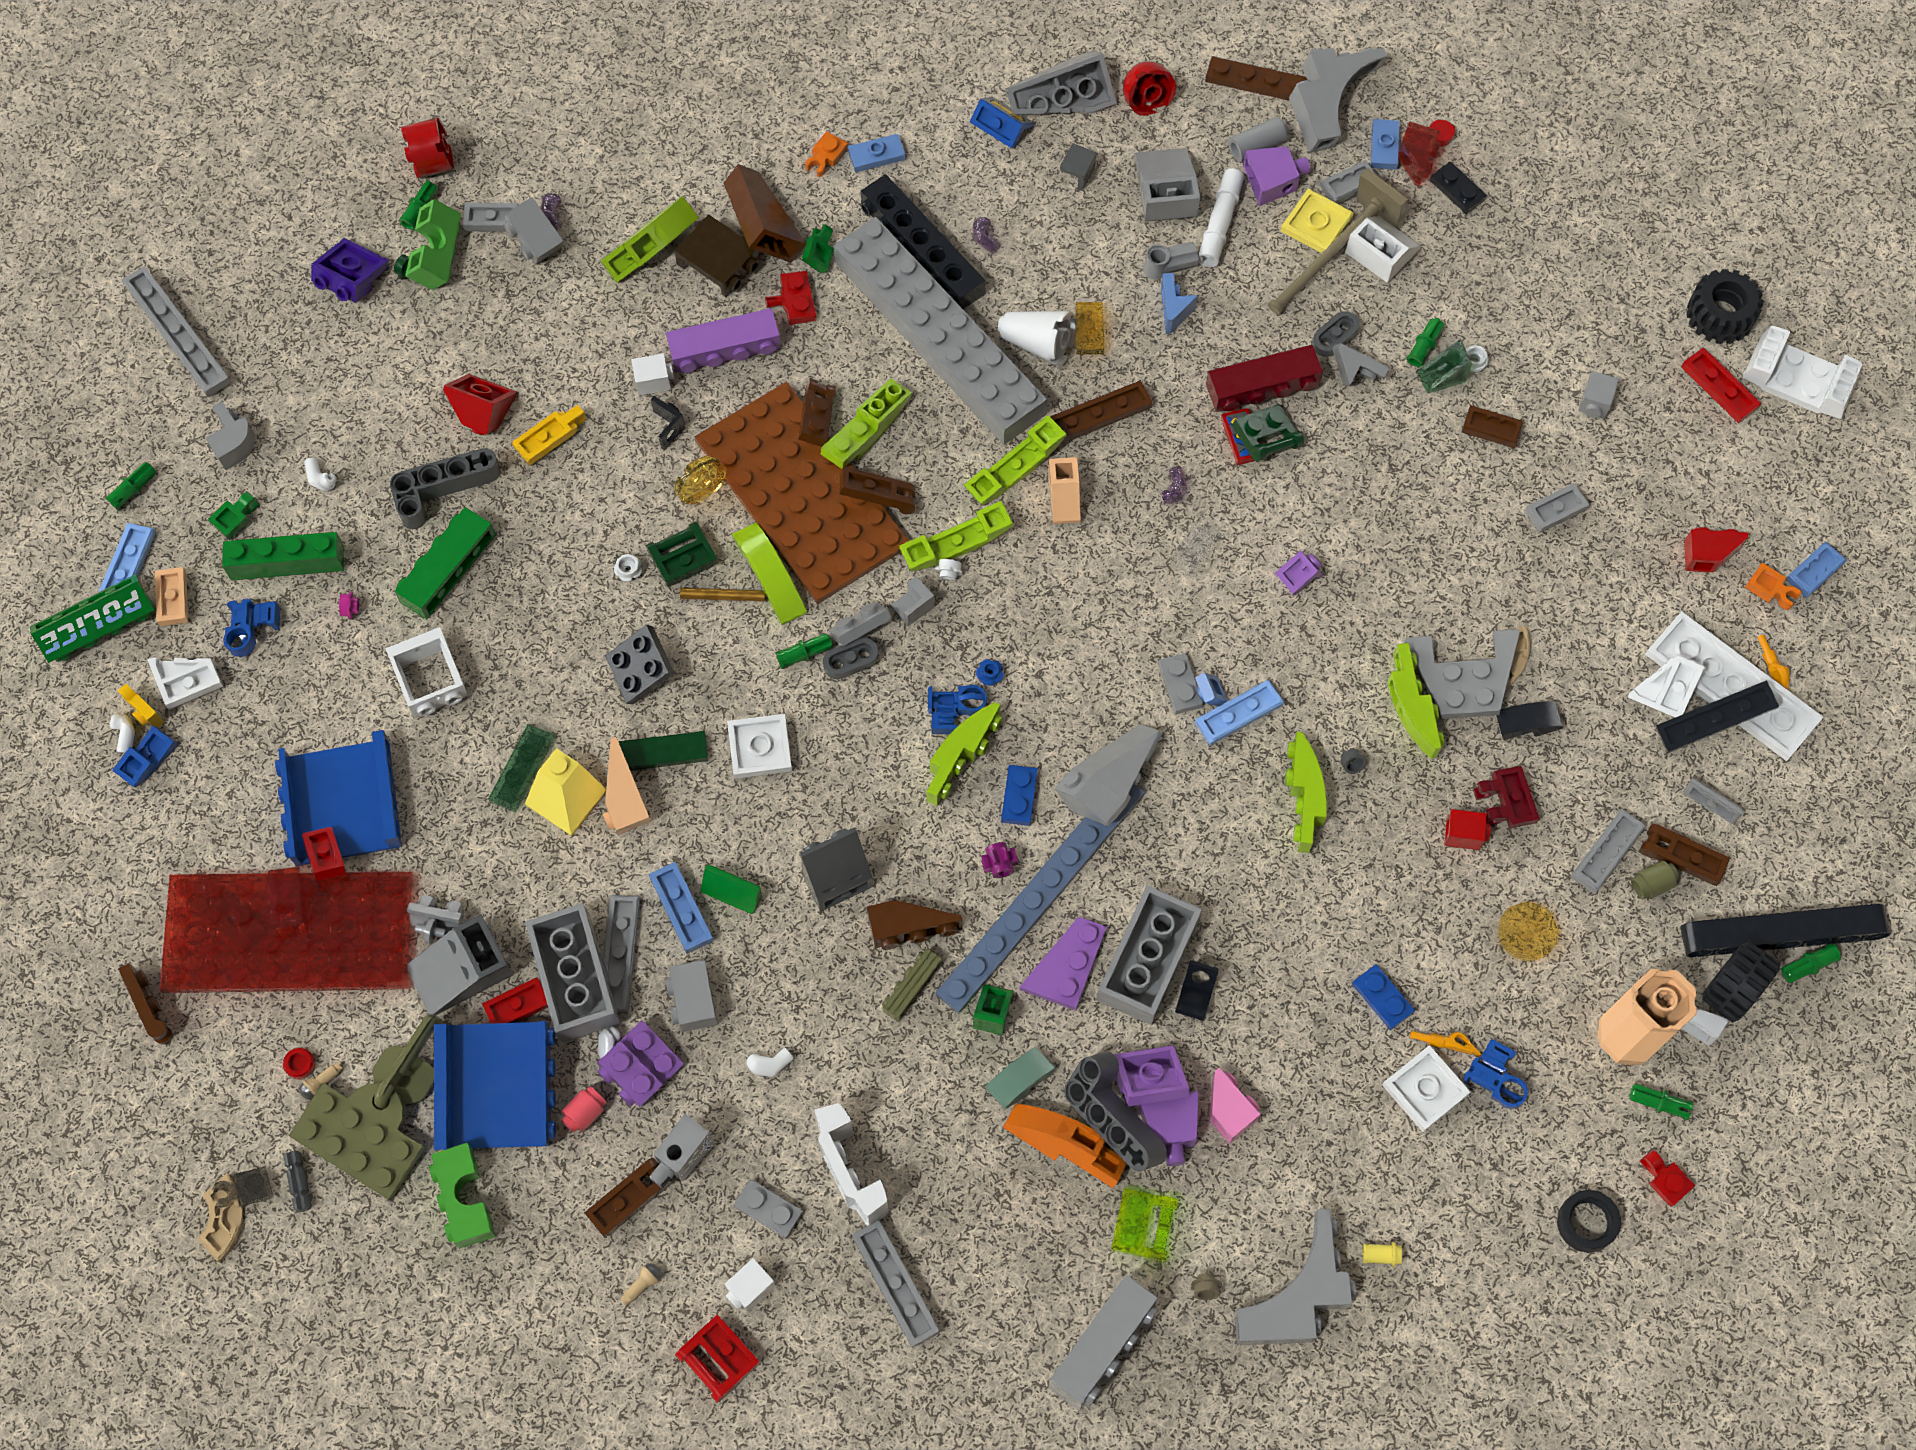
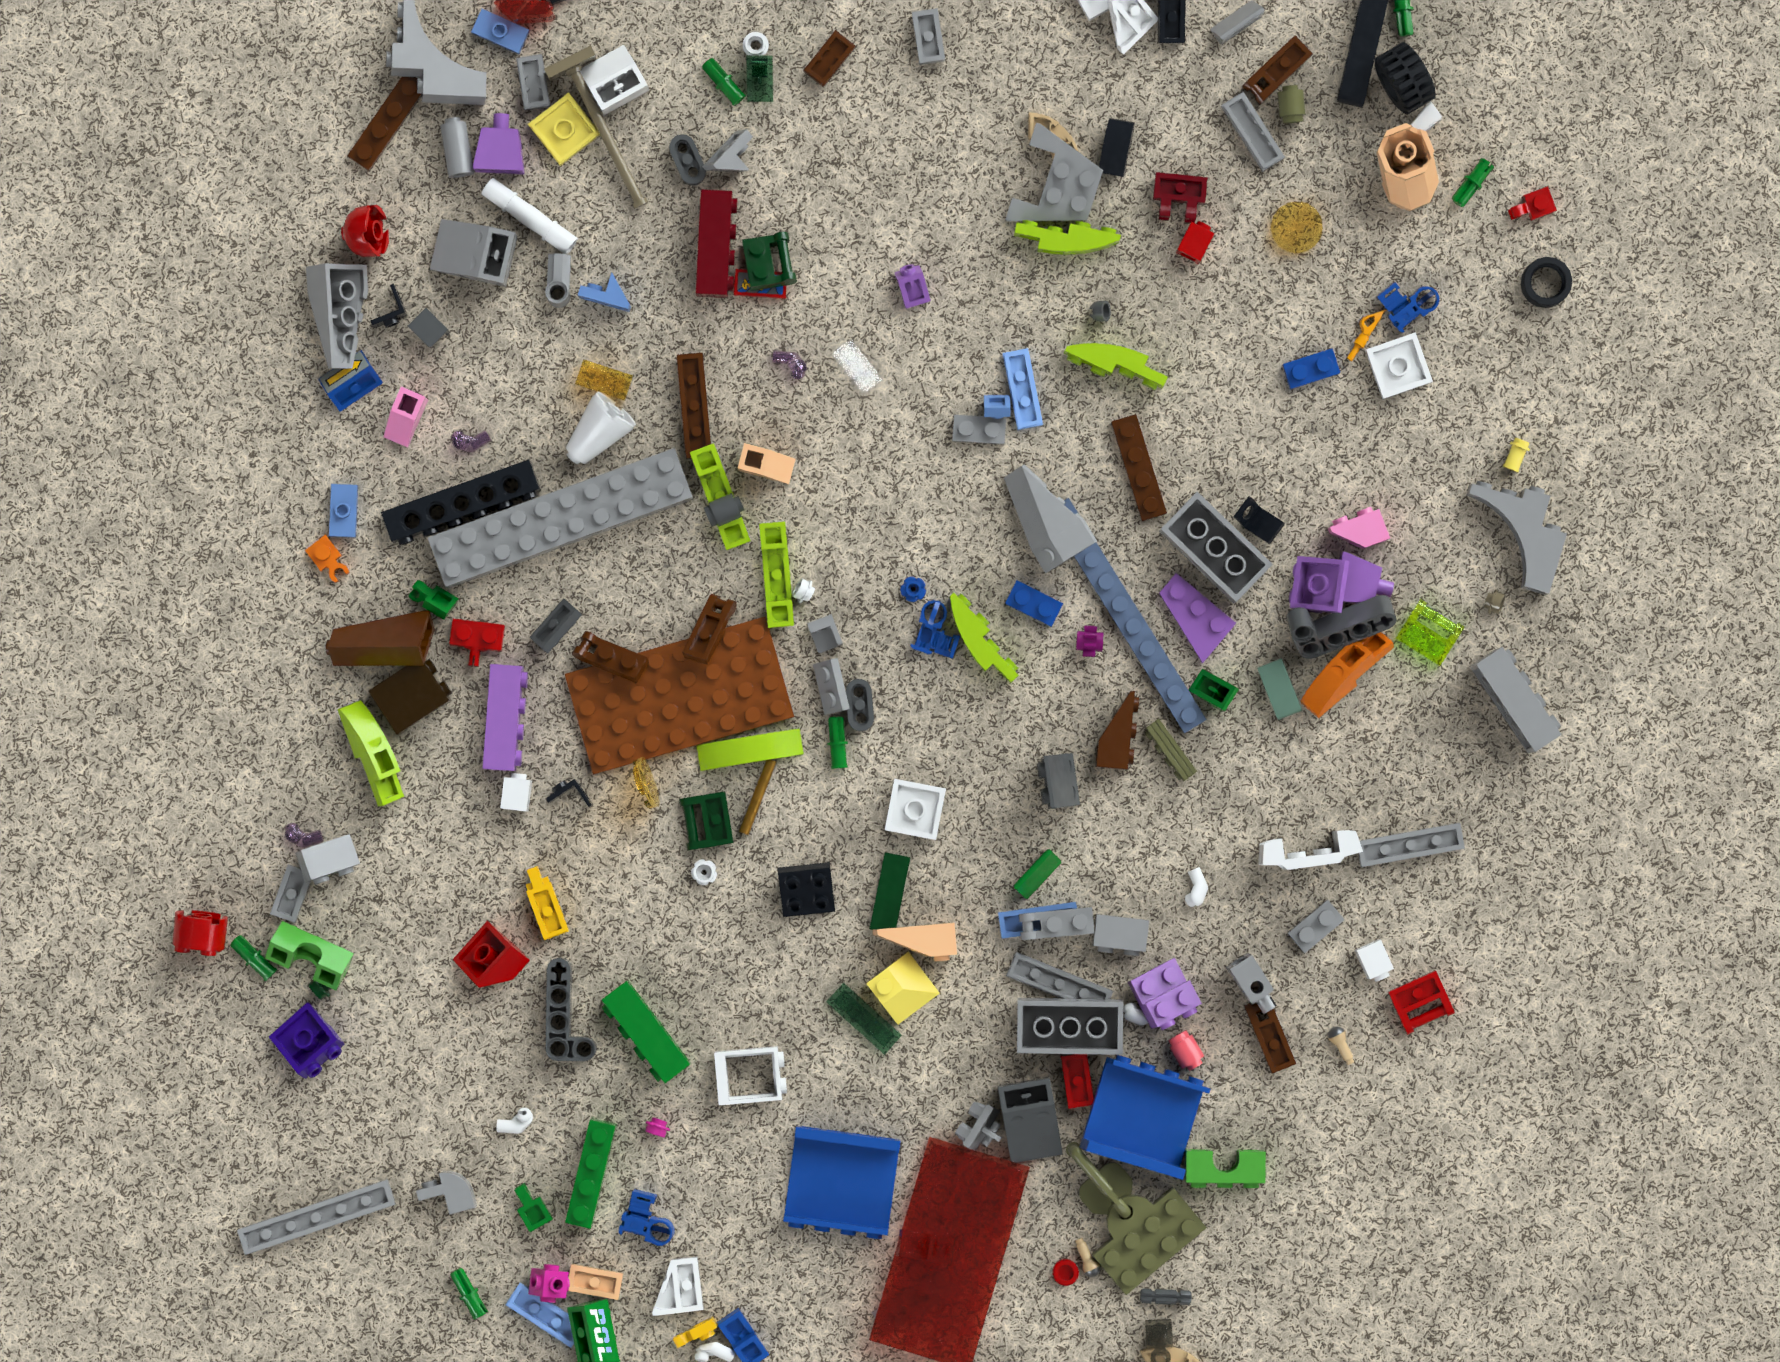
camera: 70 degrees left, 20 degrees up
(167, 546) = (549, 1283): none -> dark pink brick
(323, 853) = (892, 1206): red plate -> none
(682, 923) = (1057, 923): none -> light grey plate
(823, 356) = (555, 625): none -> dark grey plate
(868, 425) = (636, 616): lime slope -> none
(986, 170) = (405, 416): none -> bright pink slope
(1002, 466) = (724, 510): none -> dark grey brick
(1076, 134) = (392, 318): none -> black bracket
(1204, 853) = (1138, 467): none -> reddish brown plate

